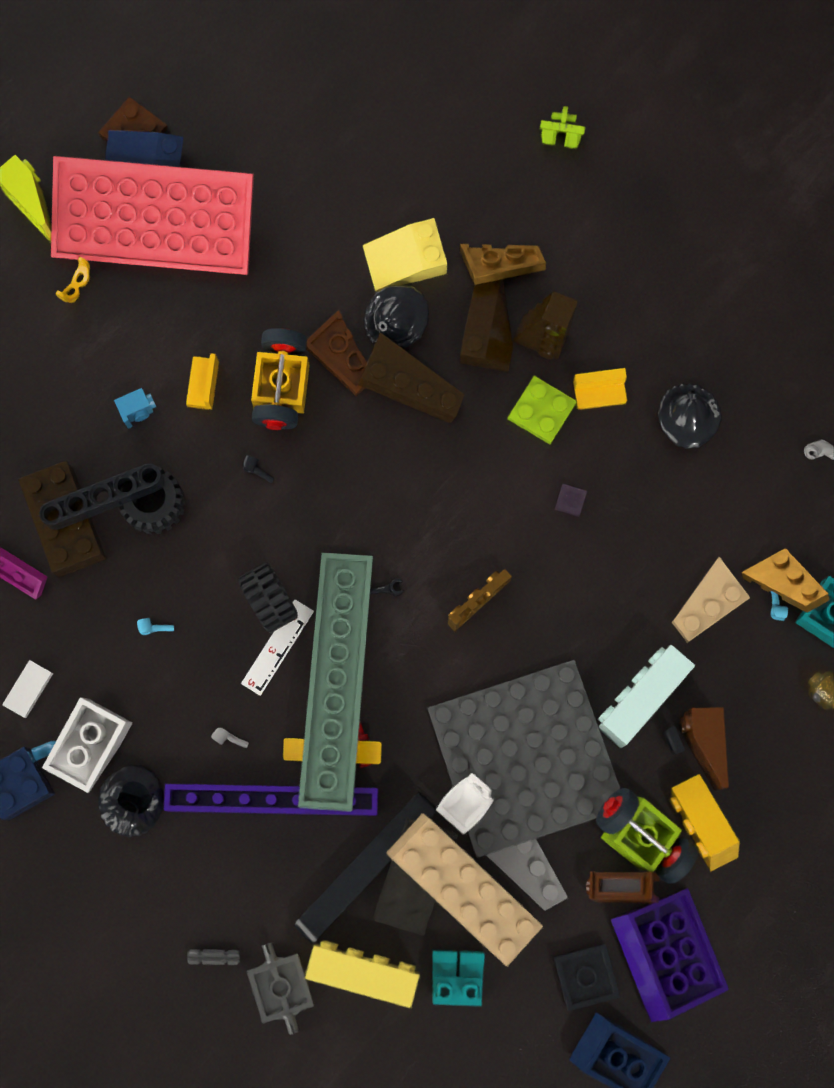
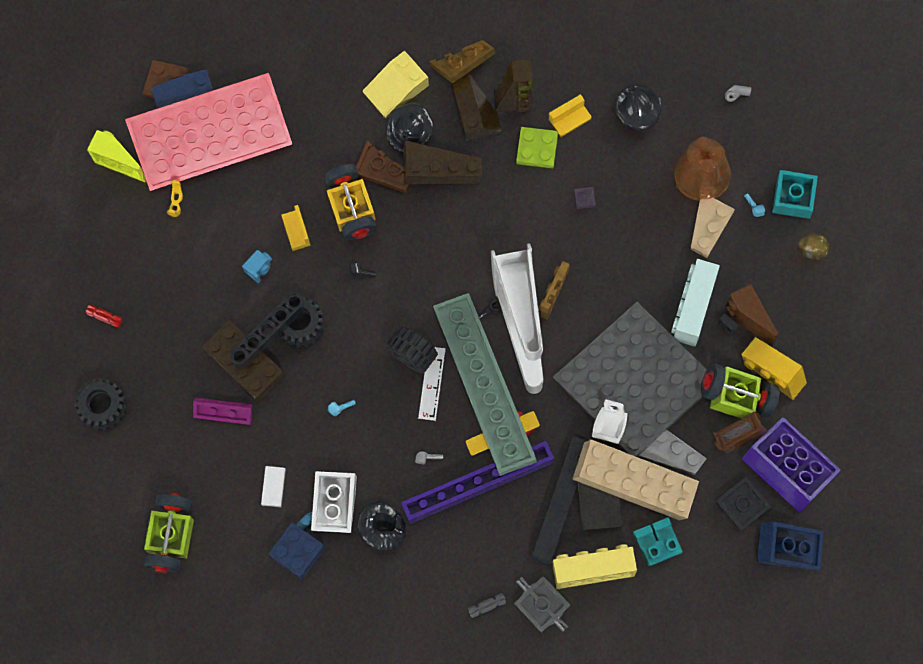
camera: 20 degrees left, 5 degrees down
(426, 587) = (517, 296): none -> white piece
(732, 532) = (703, 170): none -> clear orange cone
(788, 579) = (754, 184): pearl gold wing -> none

